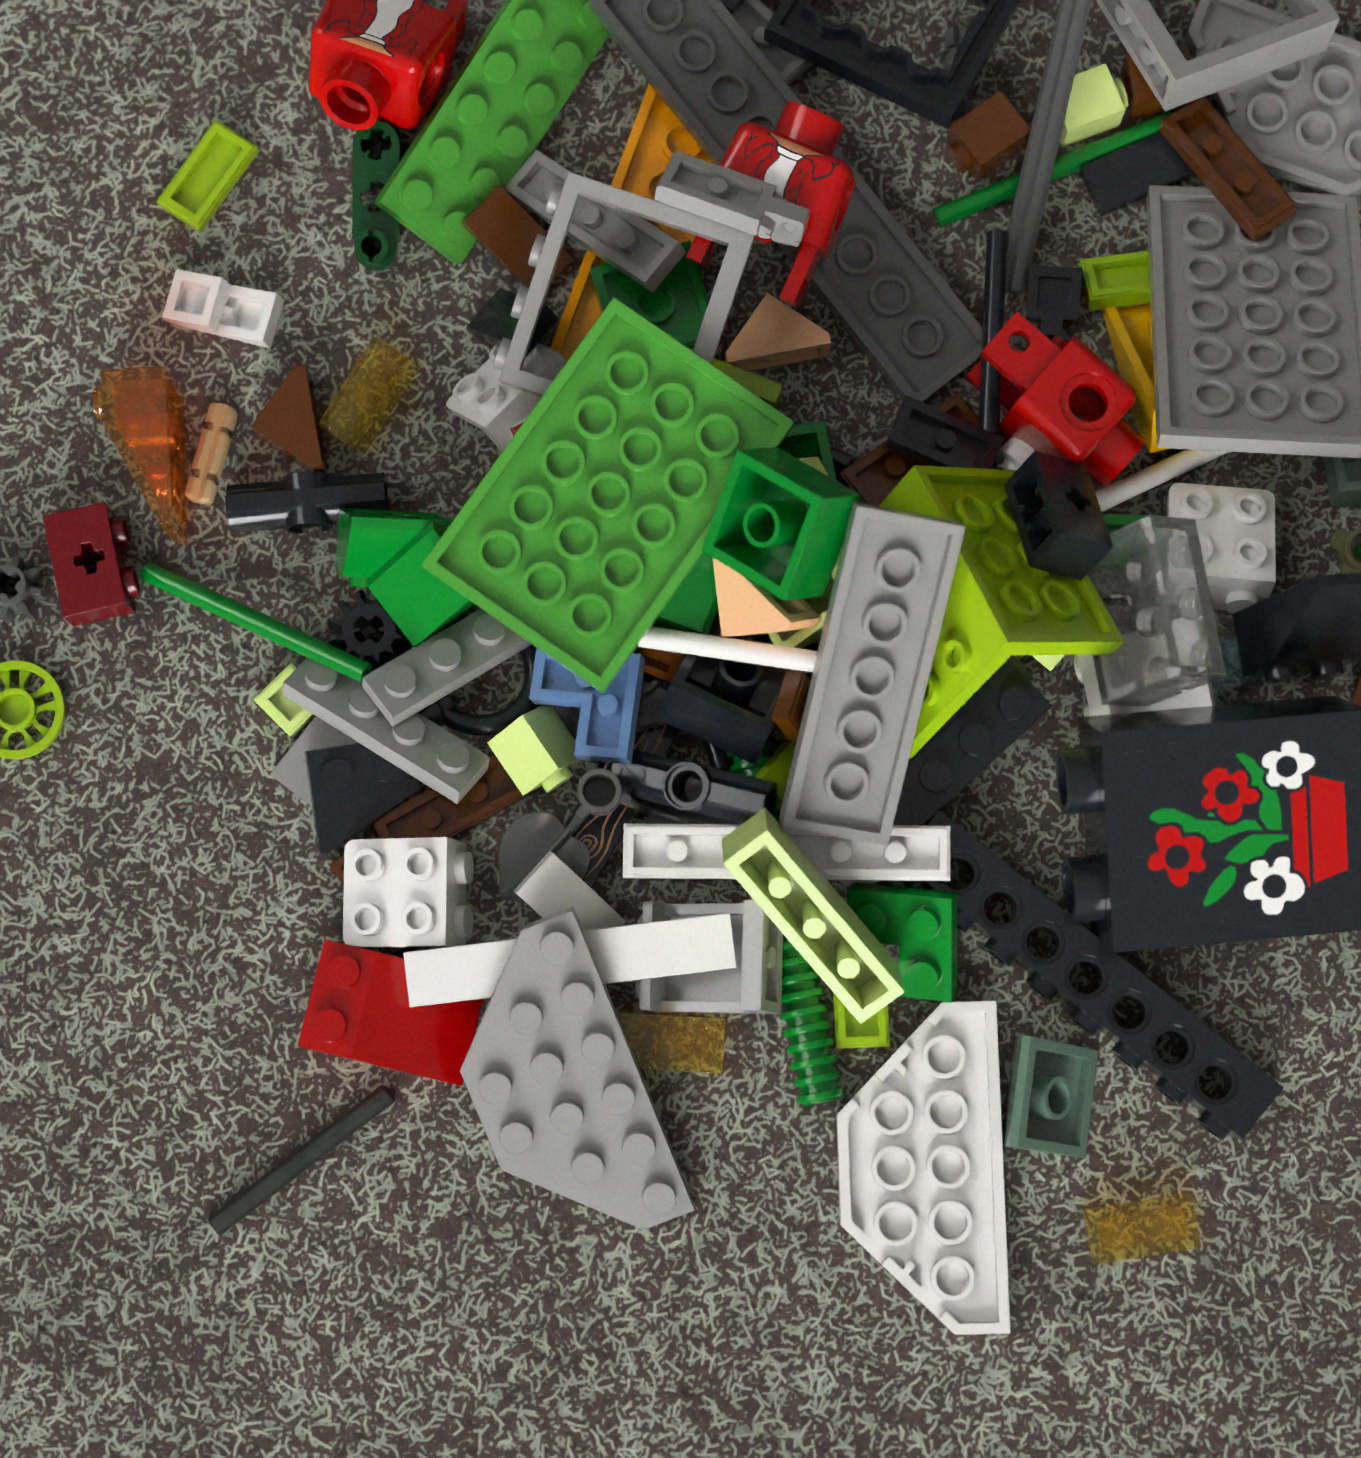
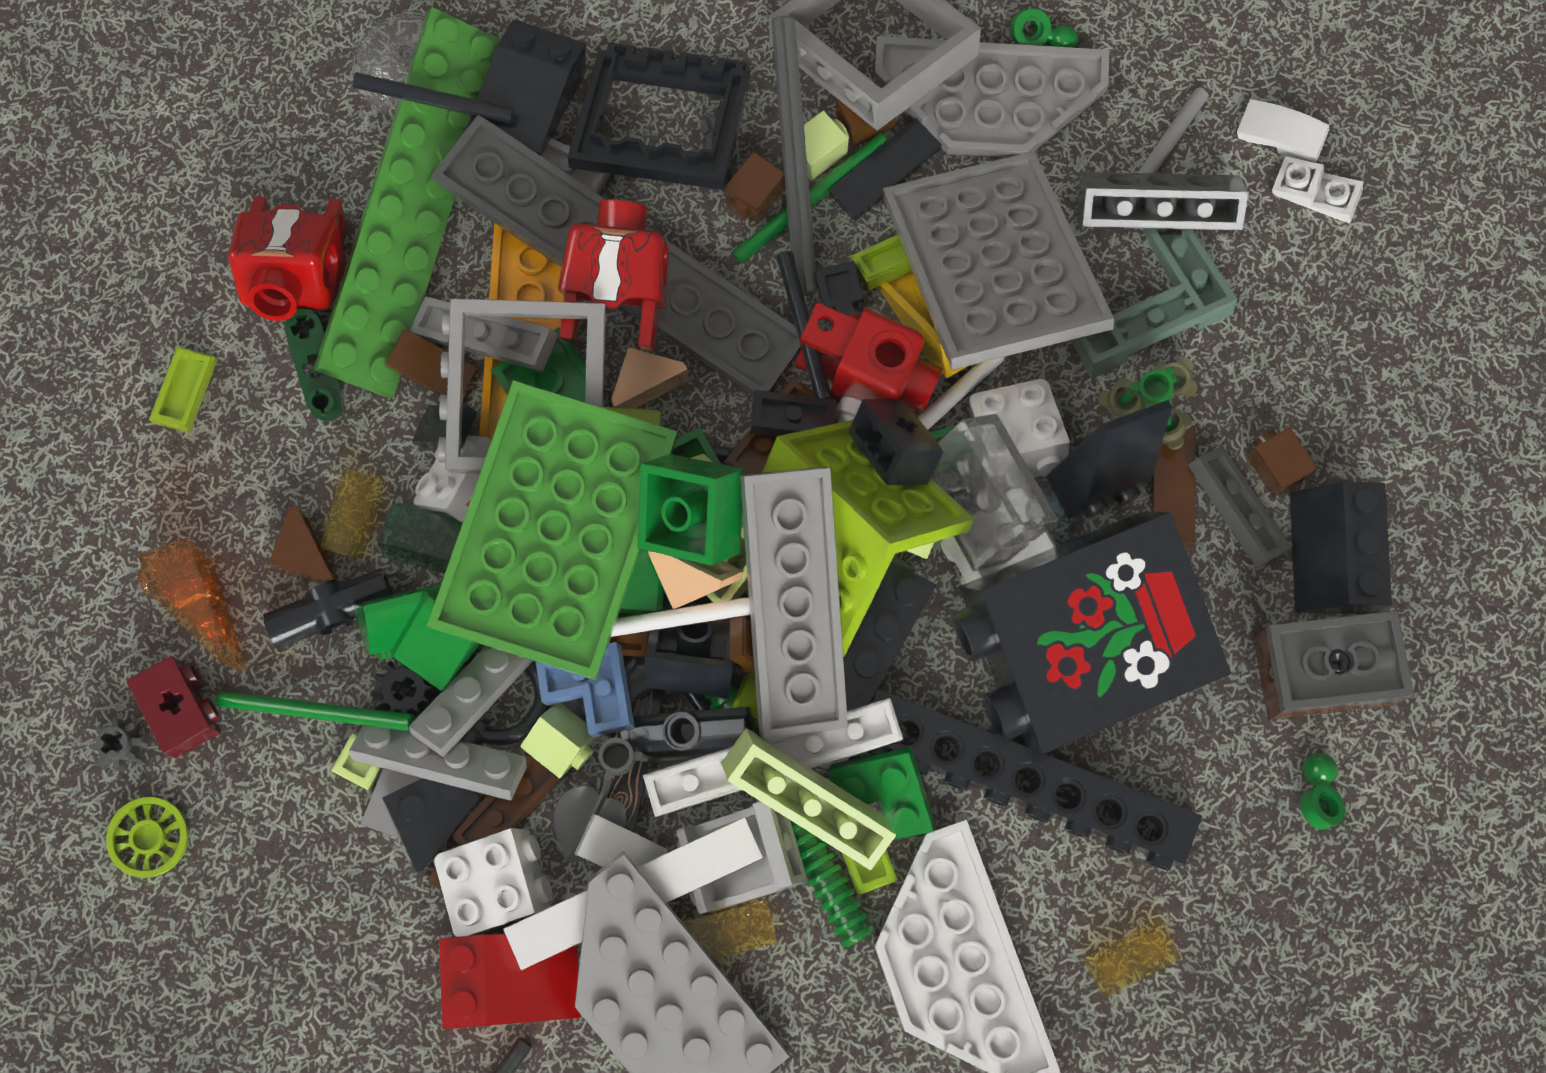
camera: 20 degrees left, 5 degrees down
(211, 453) = (245, 594): tan axle -> none
(223, 309) = (222, 484): white slope -> none
(443, 451) = (419, 537): none -> clear green hinge
(731, 199) = (579, 283): light grey hinge -> none
(1050, 1097) = (1030, 880): sand green slope -> none
(1228, 168) = (935, 158): reddish brown tile -> none

